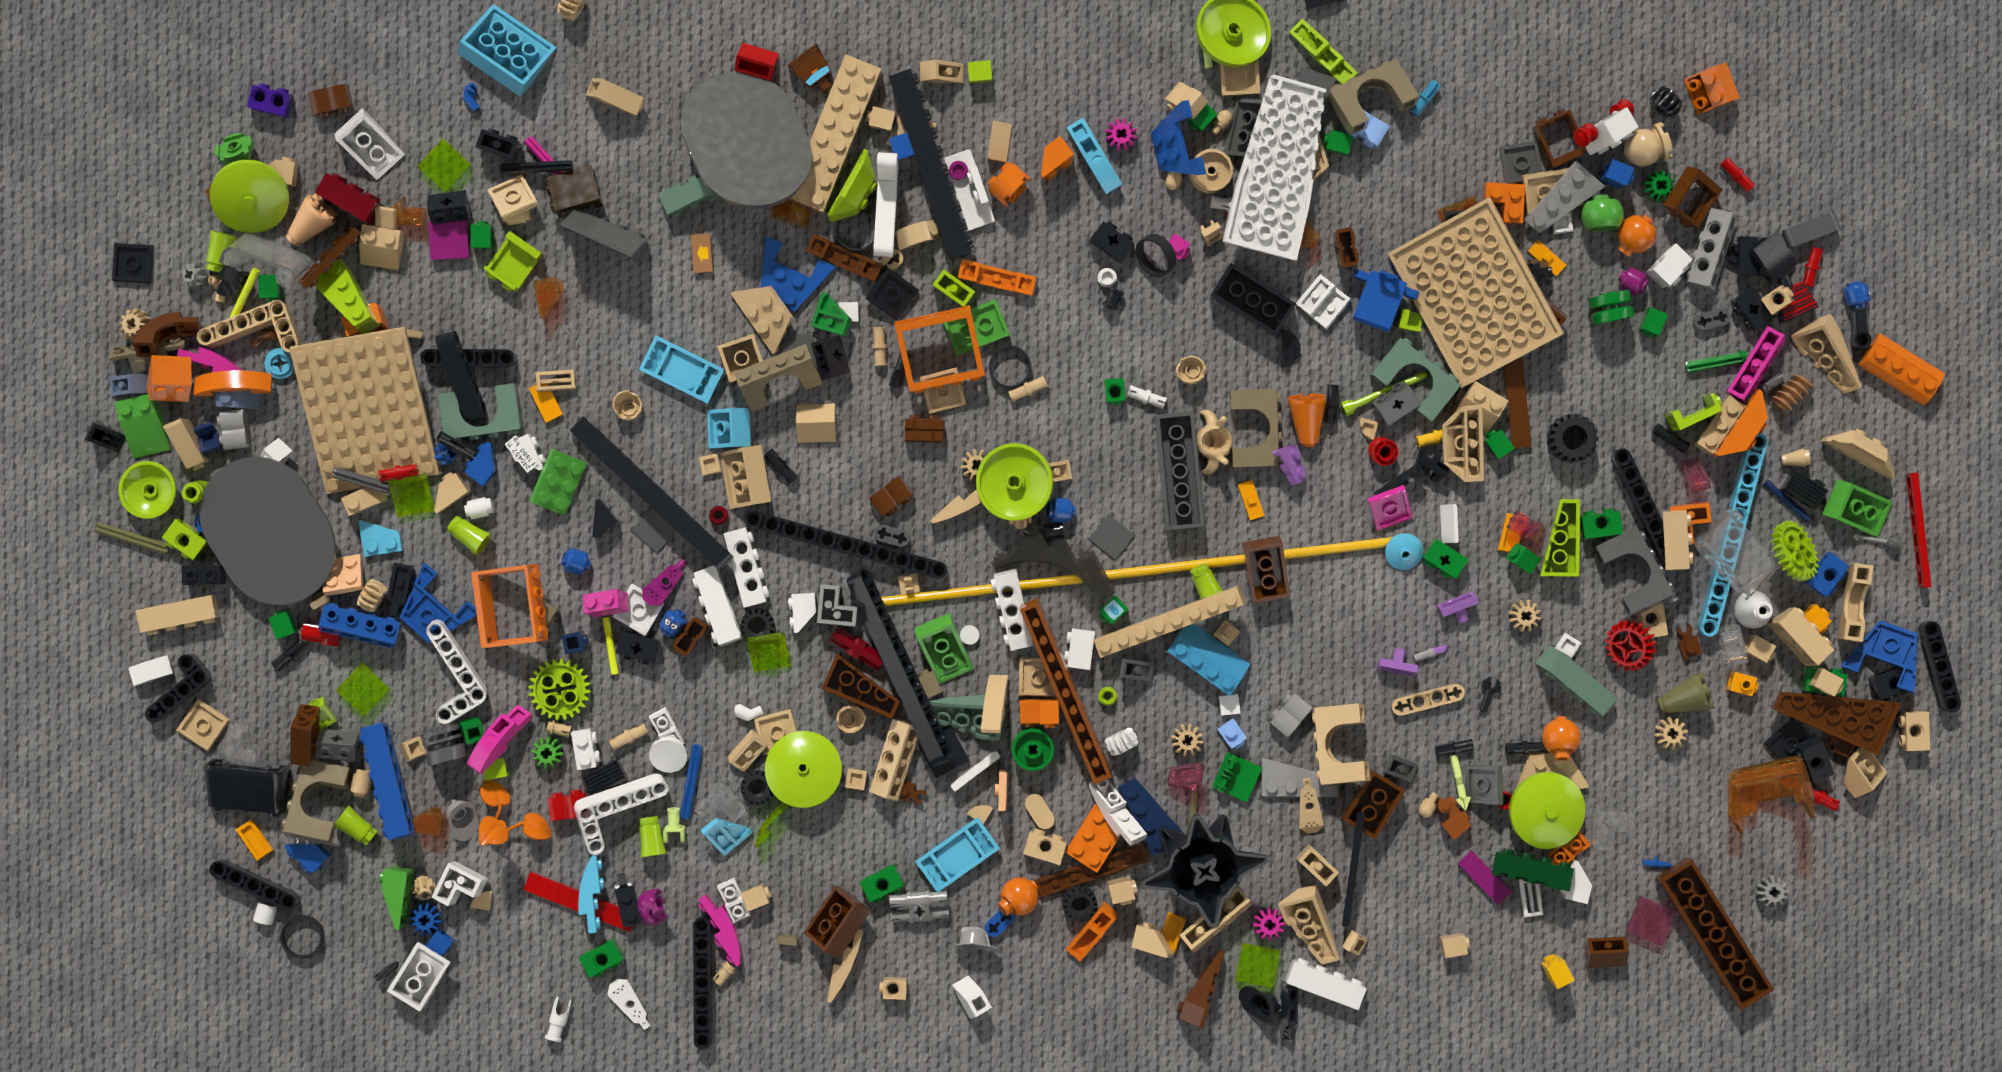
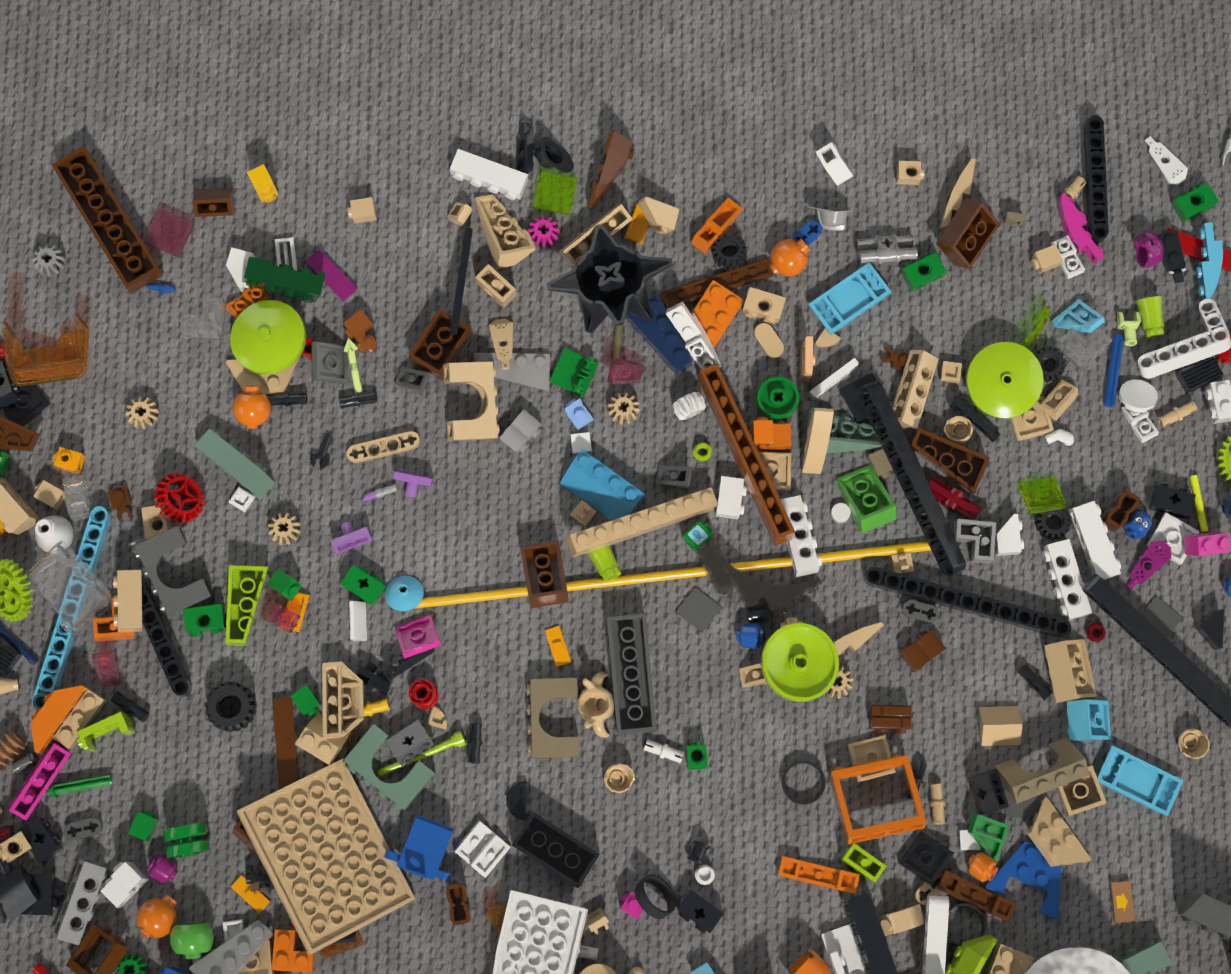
camera: 175 degrees right, 10 degrees down
(710, 464) = (1105, 684): tan tile -> none
(791, 214) = (1030, 942): clear orange slope -> none
(837, 285) = (982, 866): none -> orange head
(840, 738) = (979, 422): none -> black pin
(988, 326) = (827, 824): bright green plate -> none
(1028, 388) = (785, 759): tan pin -> none
(1122, 890) = (688, 262): tan brick -> none
(1291, 464) = (517, 681): medium lavender wing -> none
(1307, 416) = (500, 730): orange cone -> none
(1409, 321) = (393, 828): lime panel -> none
(1428, 806) = (385, 343): tan cylinder -> none
(1688, 696) = (123, 447): olive cone -> none

